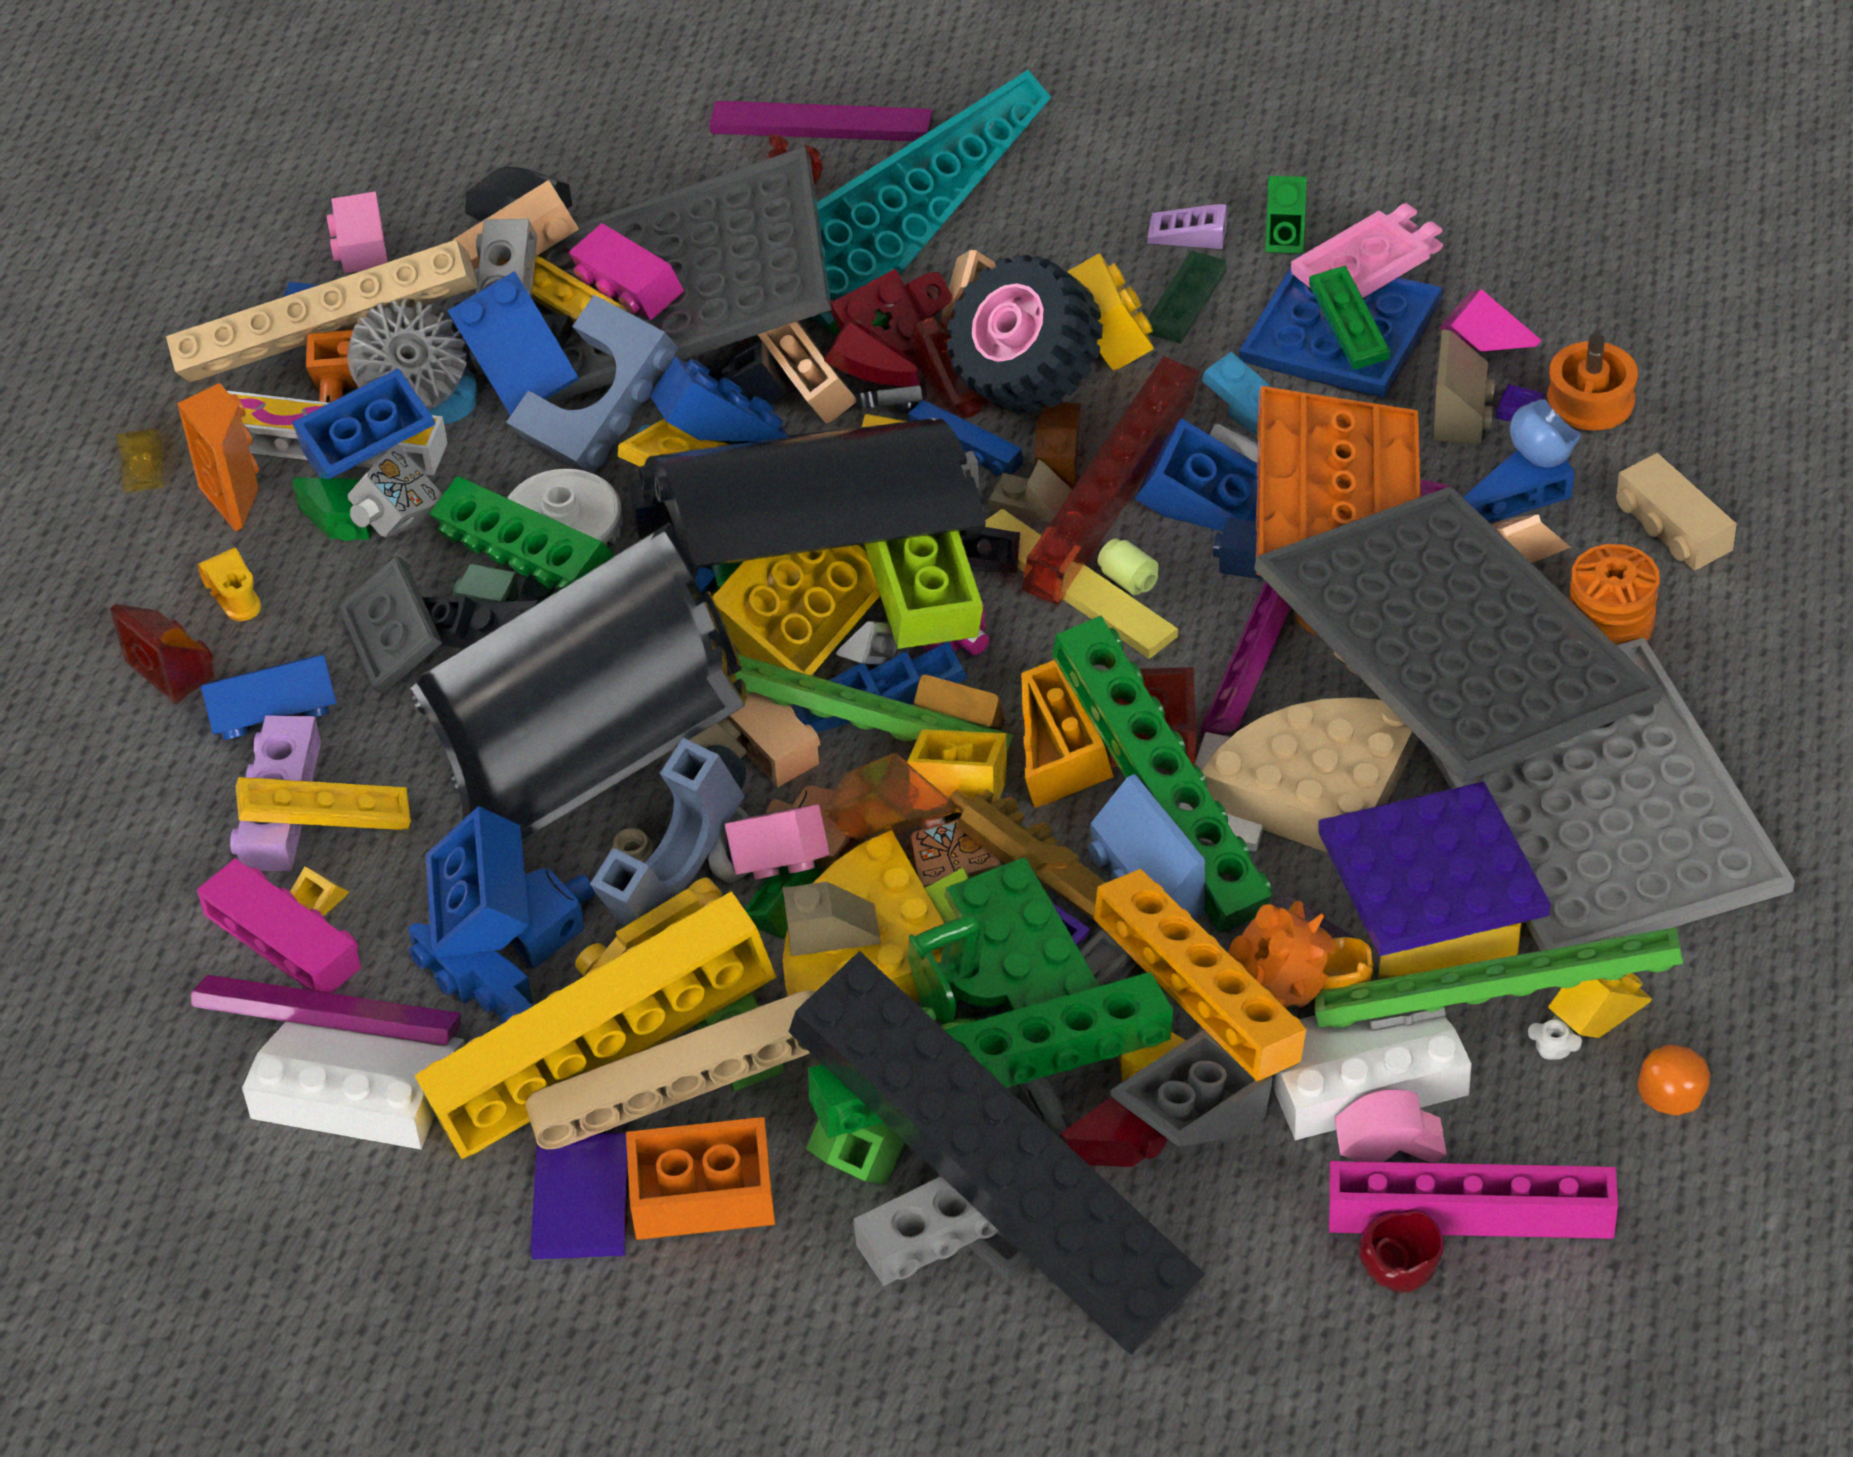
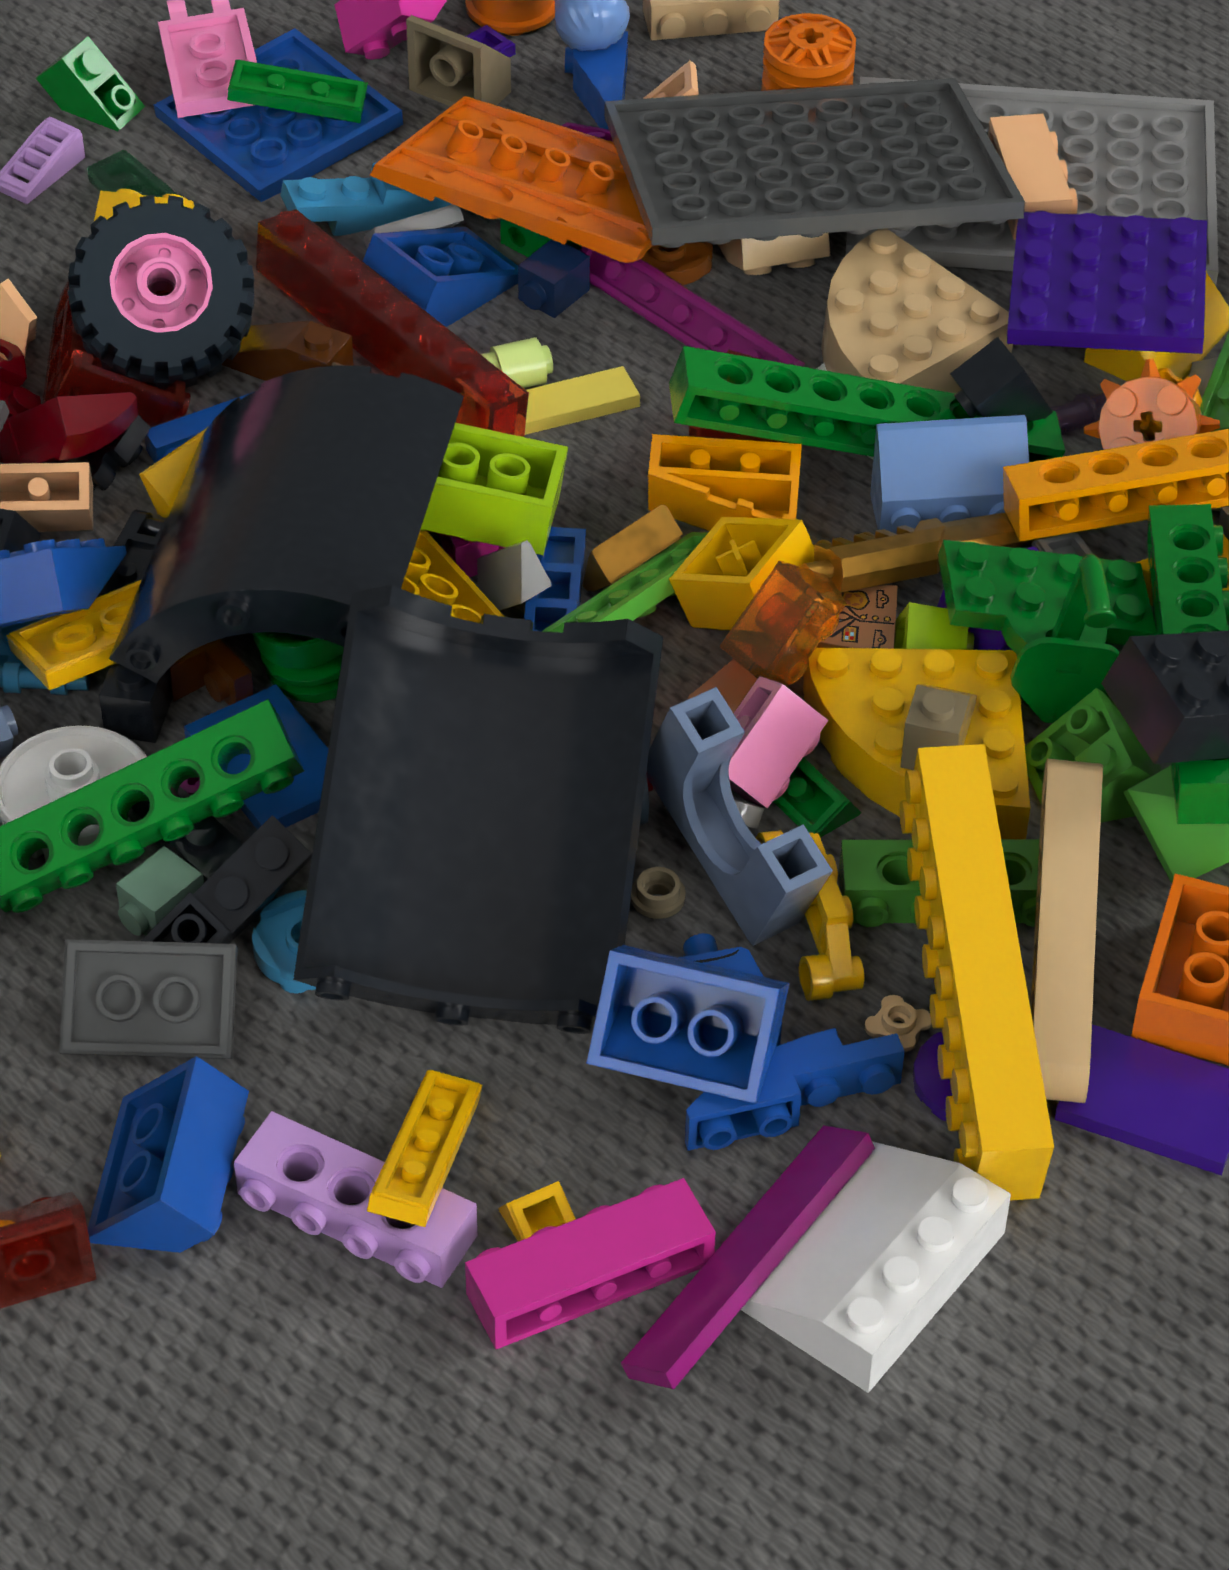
camera: 70 degrees left, 0 degrees up
(1234, 838) = (998, 386): none -> black slope
(1563, 780) = (1033, 164): none -> light nougat brick

